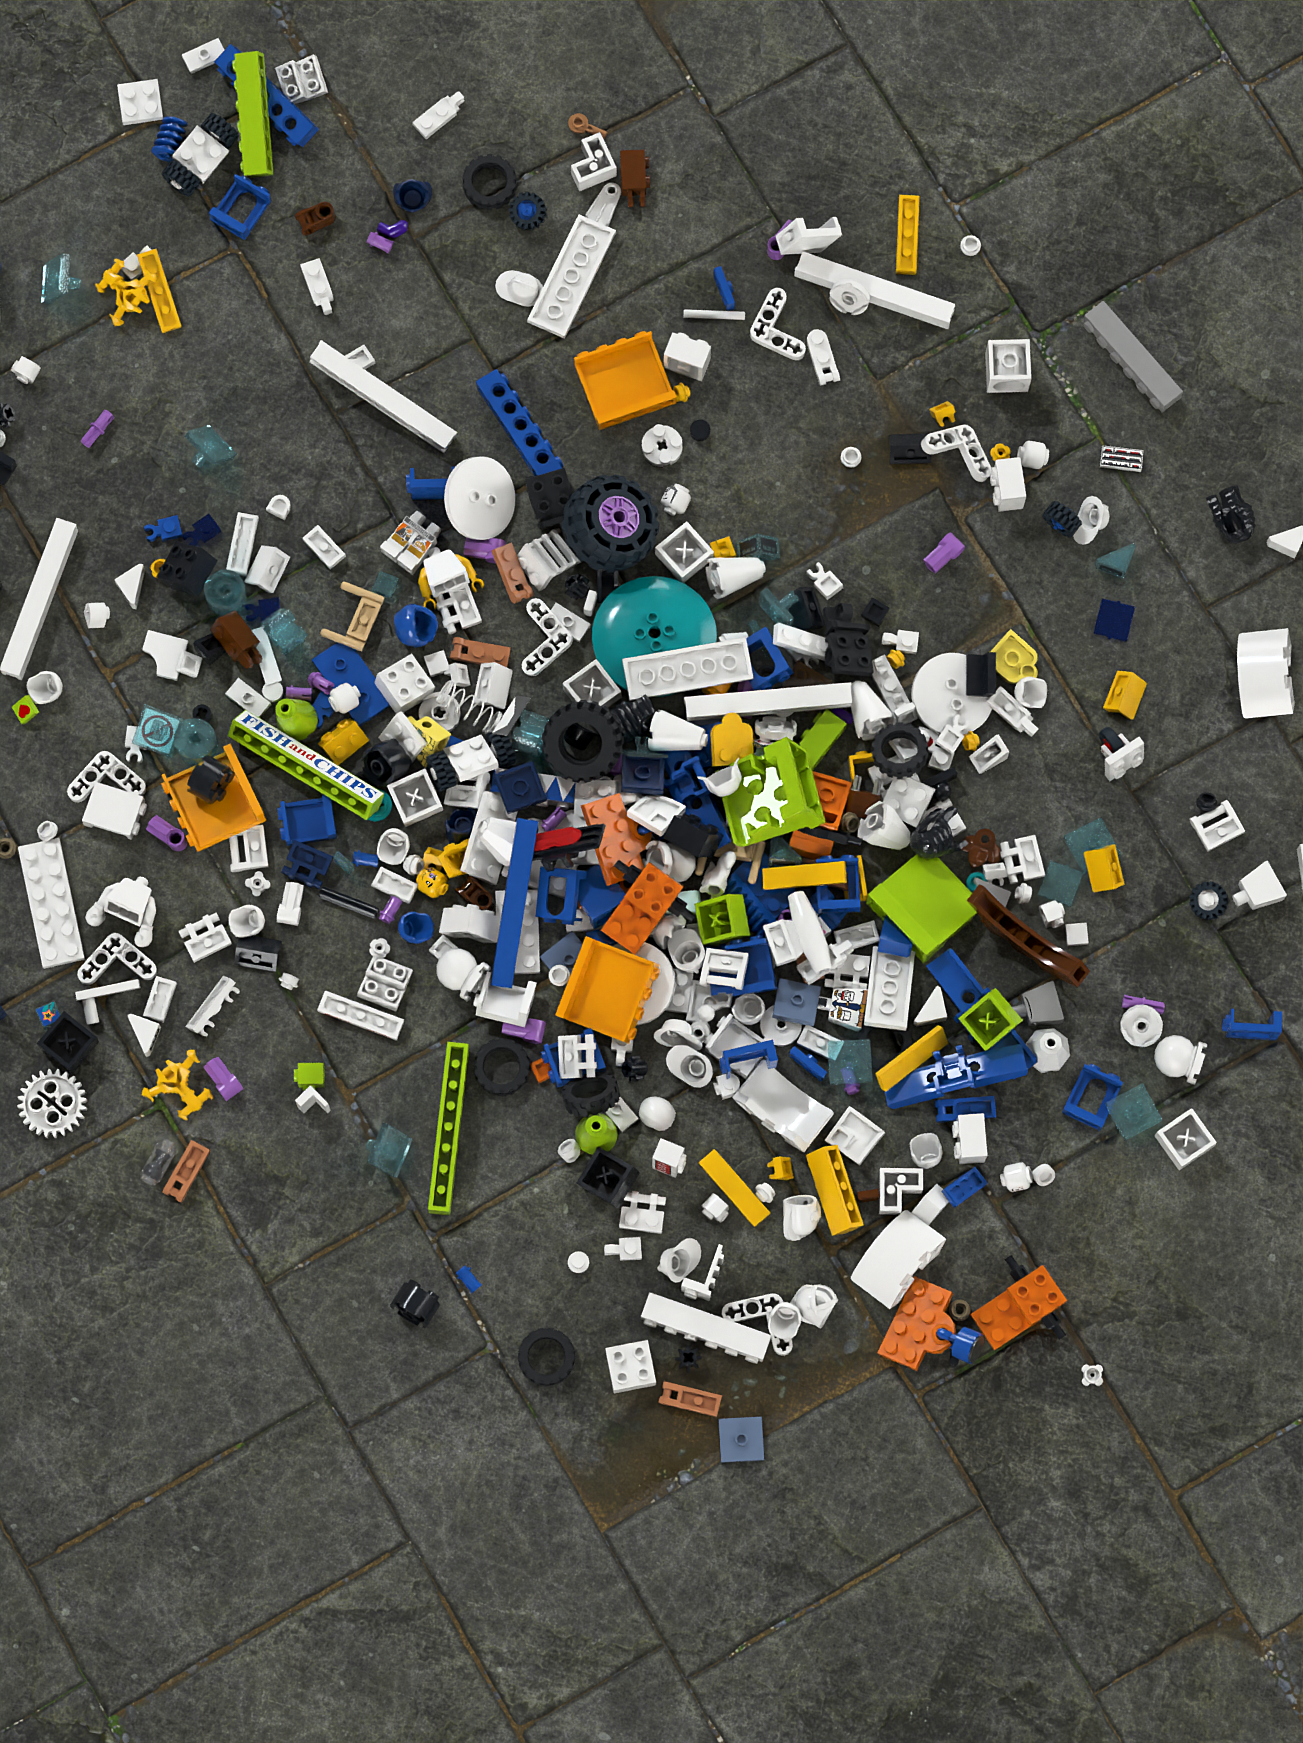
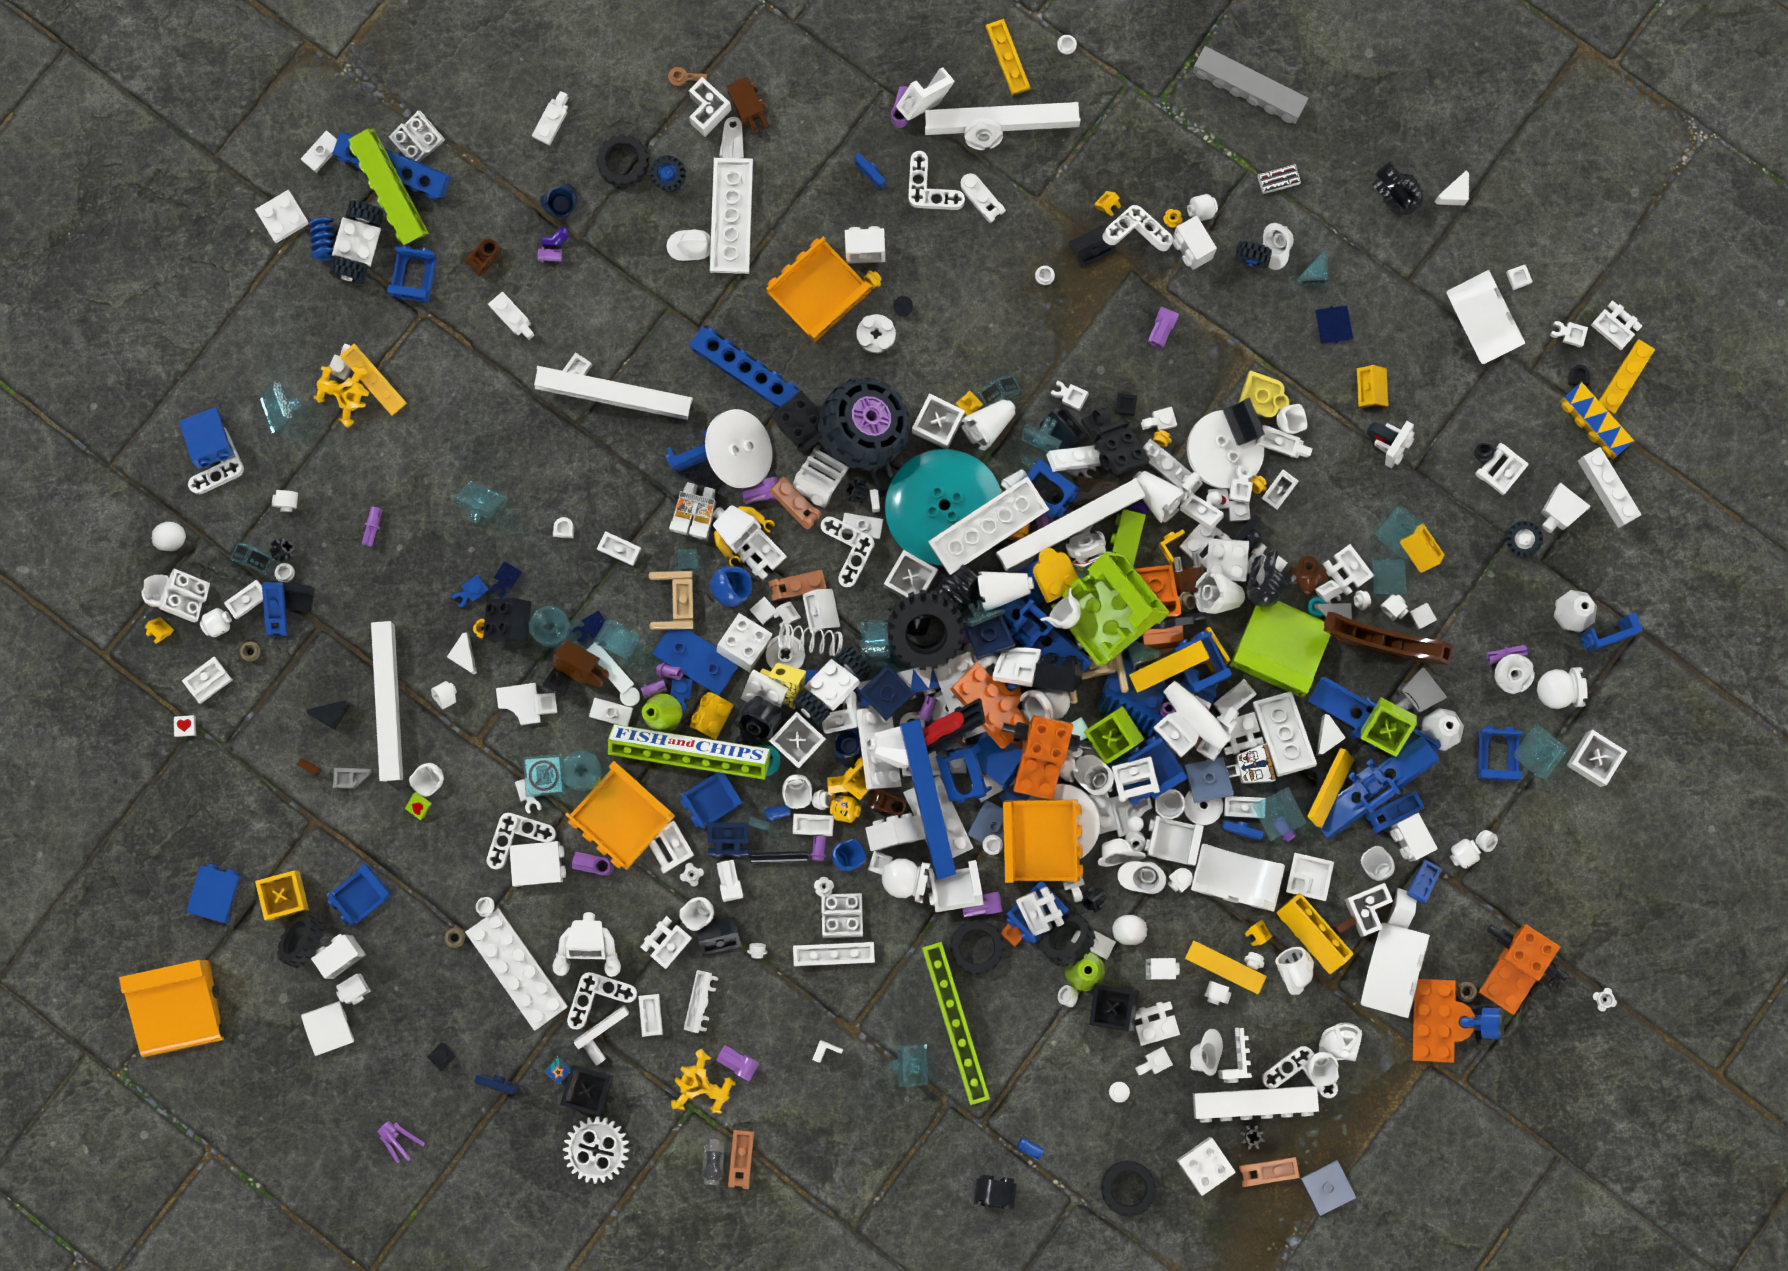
camera: 20 degrees left, 5 degrees up
(146, 1032) = (651, 1050): white slope -> none
(205, 708) = (576, 737): black bush -> none
(210, 780) = (611, 802): black brick -> none
(242, 543) = (545, 576): white plate -> none
(267, 568) = (577, 588): white panel -> none
(310, 1075) = (812, 1027): lime brick -> none
(344, 698) = (696, 677): white head -> none
(511, 715) = (850, 631): dark grey sticker -> none
(675, 499) = (909, 377): white head -> none
(708, 314) = (870, 198): white bar -> none
(716, 876) = (1092, 697): white animal -> none
(747, 1053) = (1207, 836): blue panel -> none
(893, 940) = (1269, 689): blue slope -> none
(900, 769) = (1202, 501): black tyre -> none
(1008, 365) = (1148, 138): white brick -> none
(1229, 991) = (1575, 611): none -> white cone

